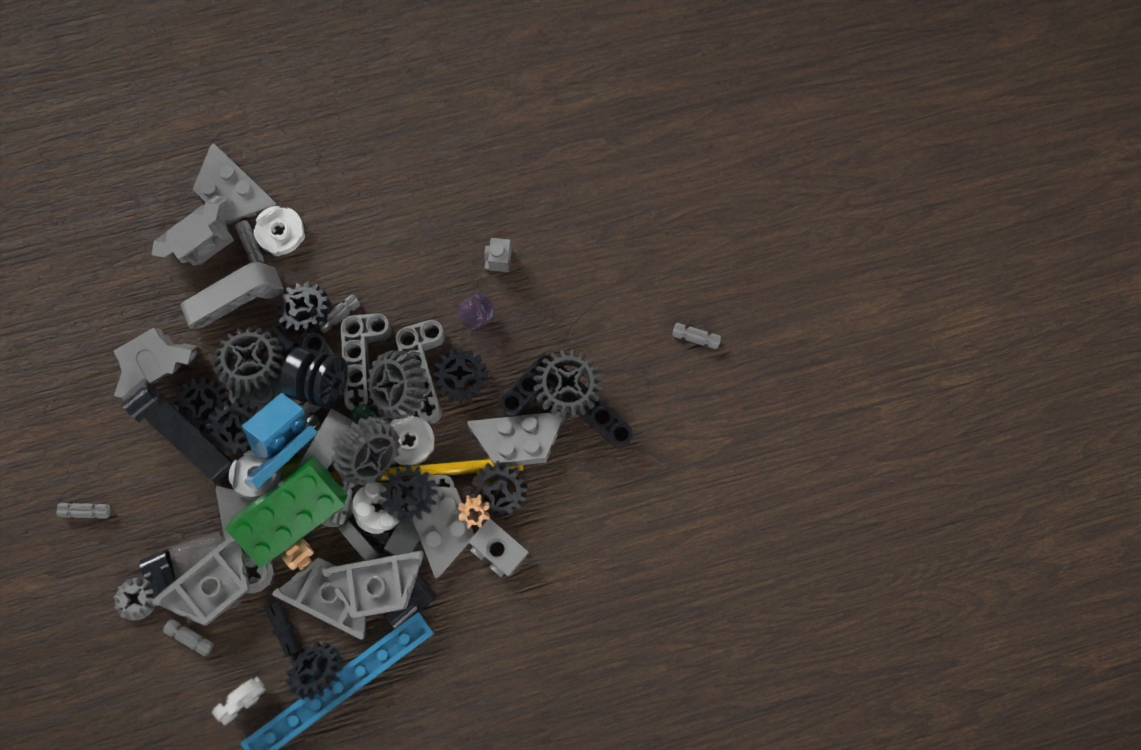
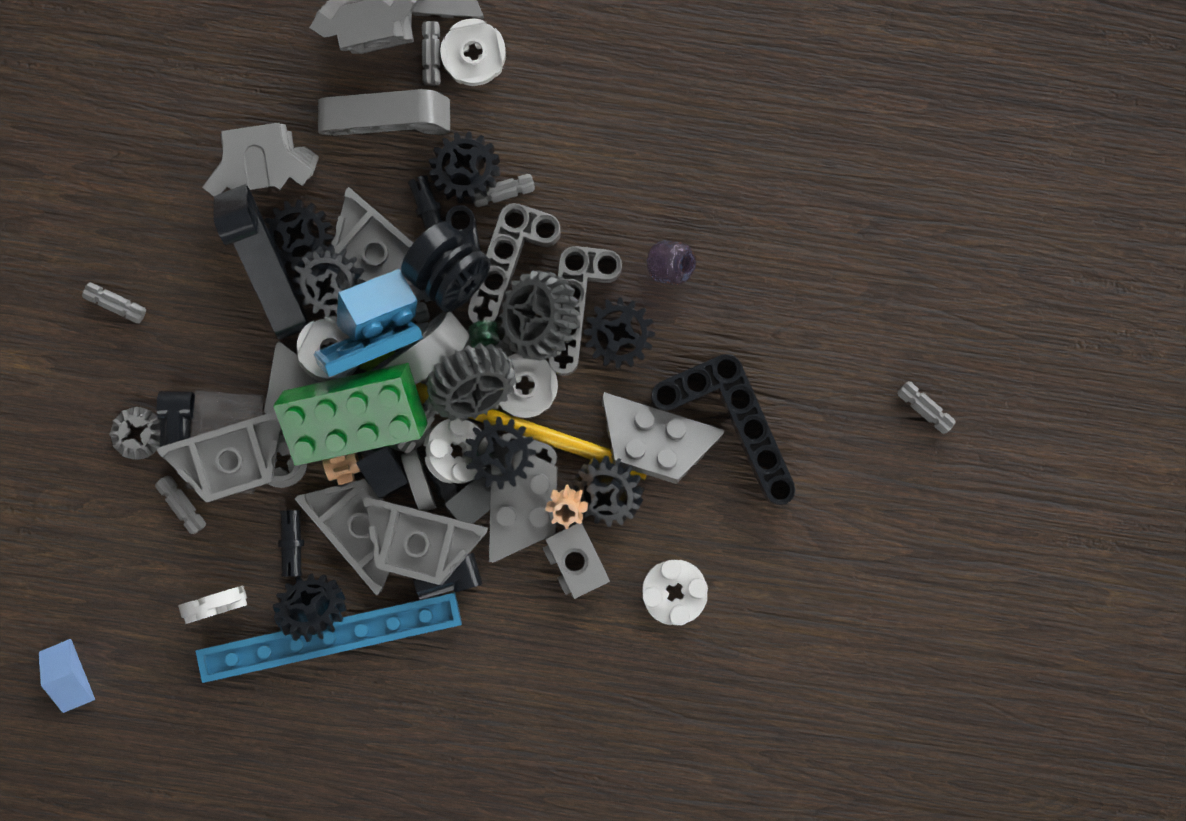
camera: 25 degrees right, 10 degrees up
(257, 345) = (386, 199): dark grey gear -> none
(329, 544) = (383, 471): none -> black slope
(498, 255) = (728, 201): light grey brick -> none
(567, 549) = (656, 596): none -> white plate
(583, 399) = (749, 419): dark grey gear -> none

